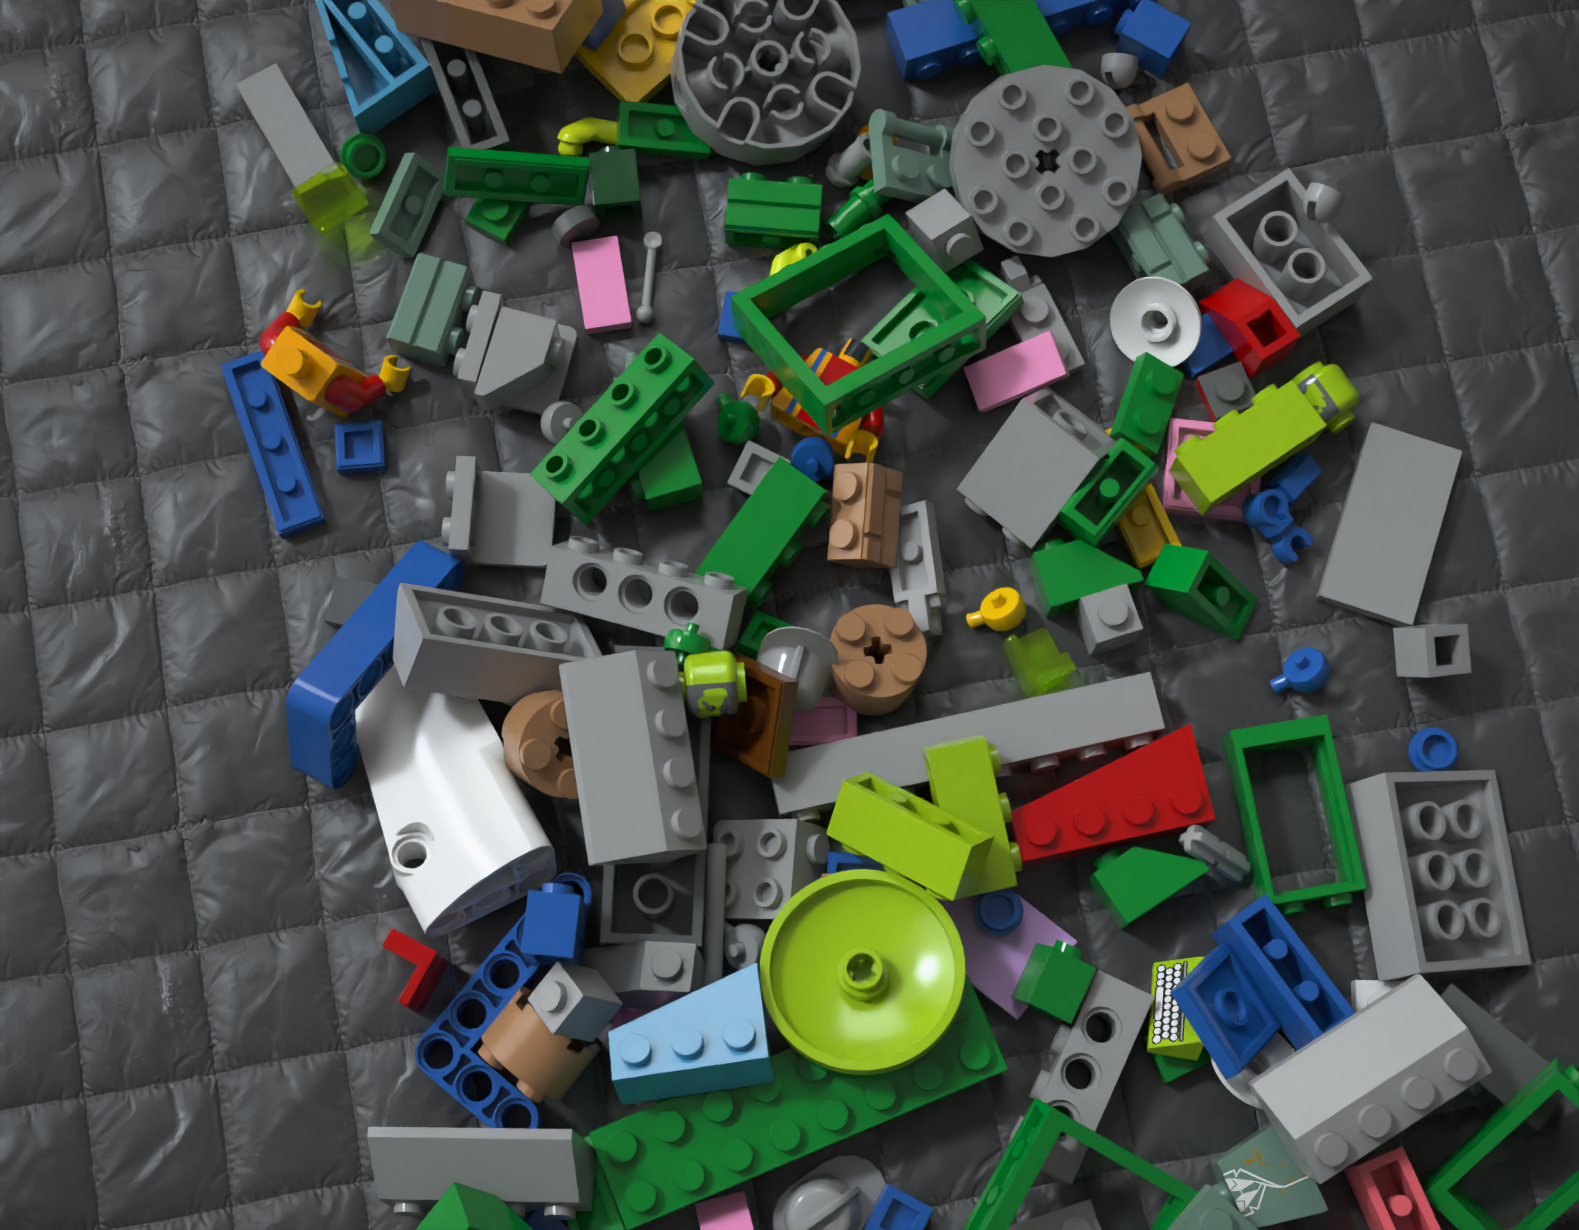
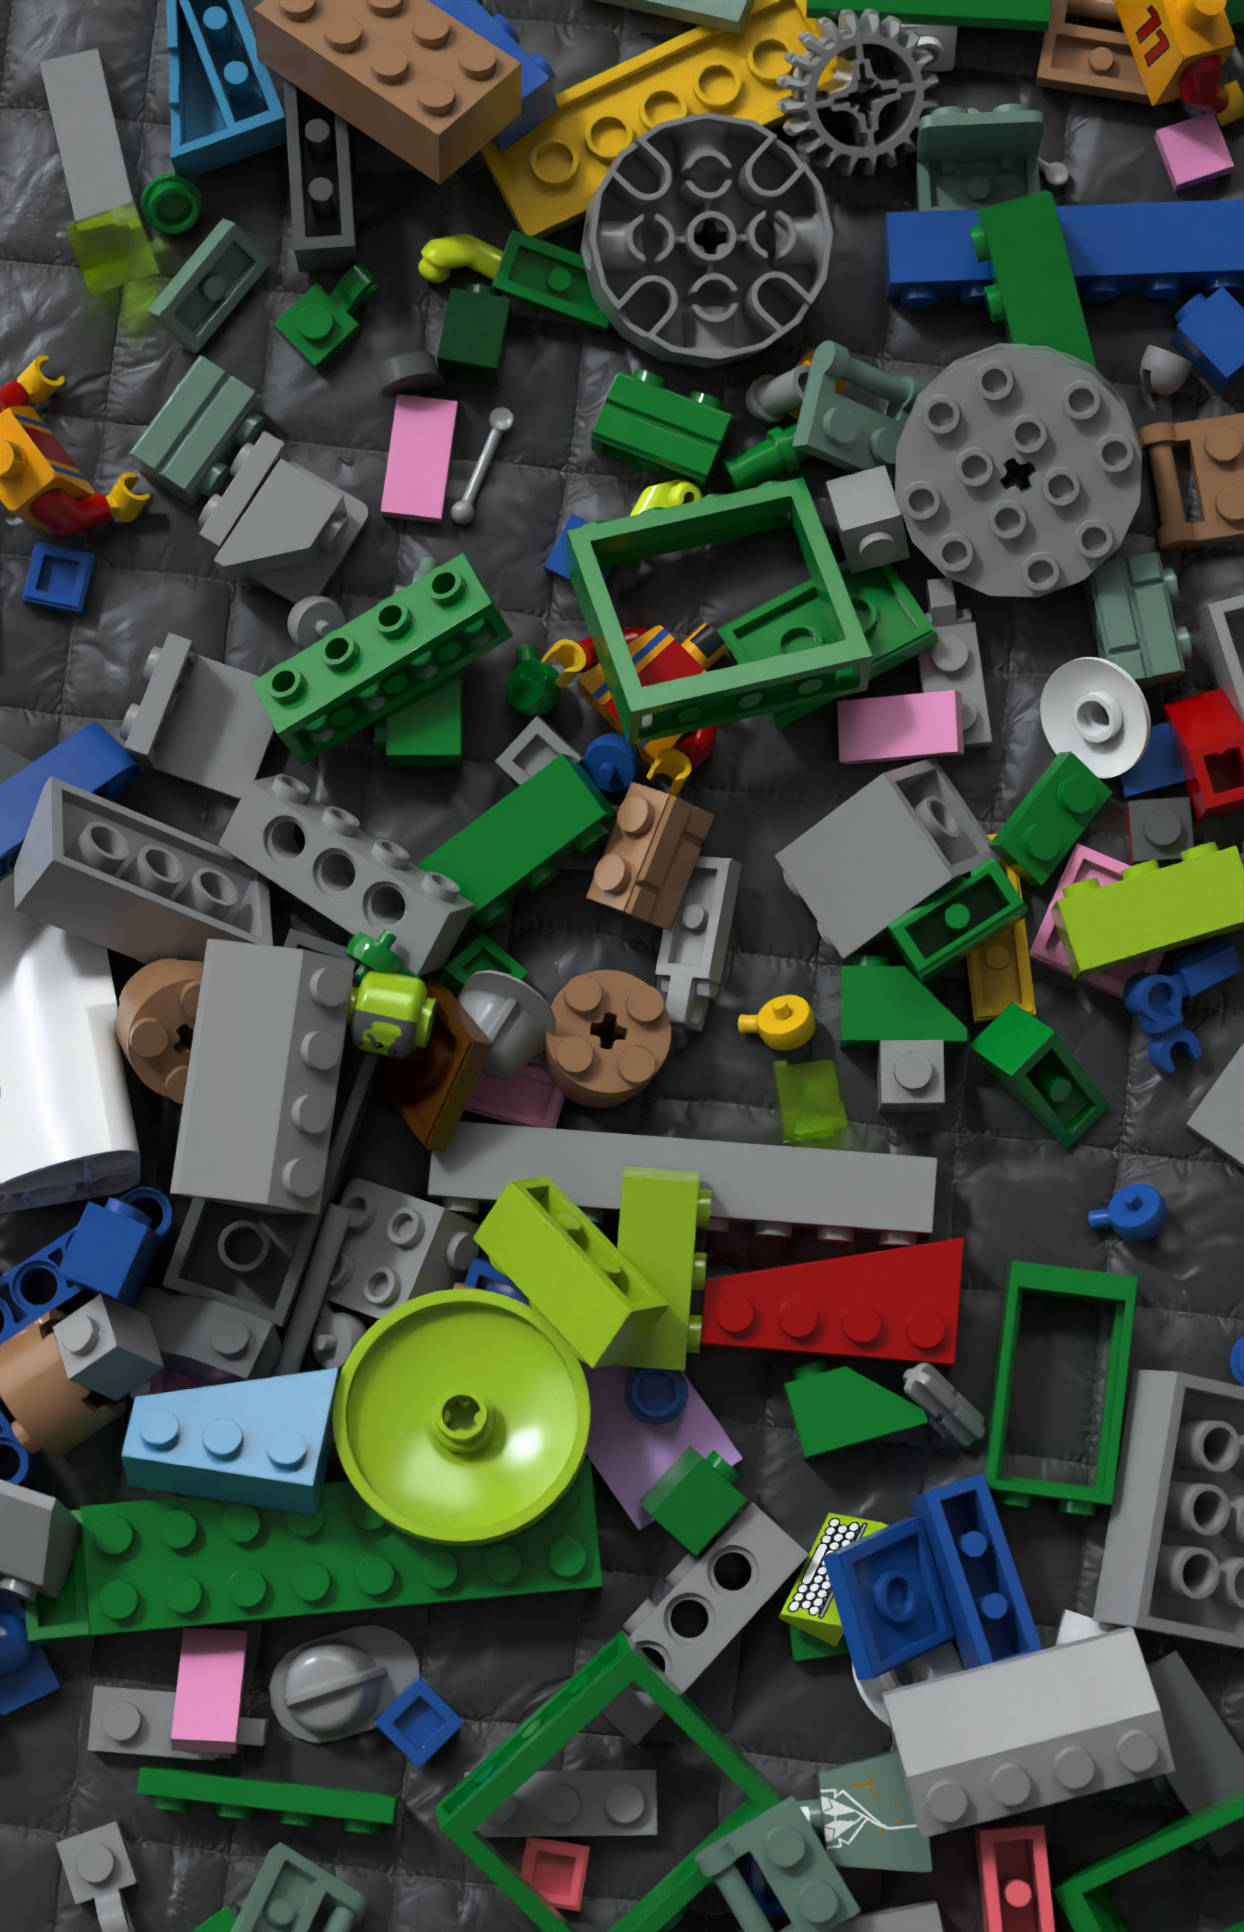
camera: 20 degrees right, 5 degrees up
(516, 176) = (351, 292): green tile -> none

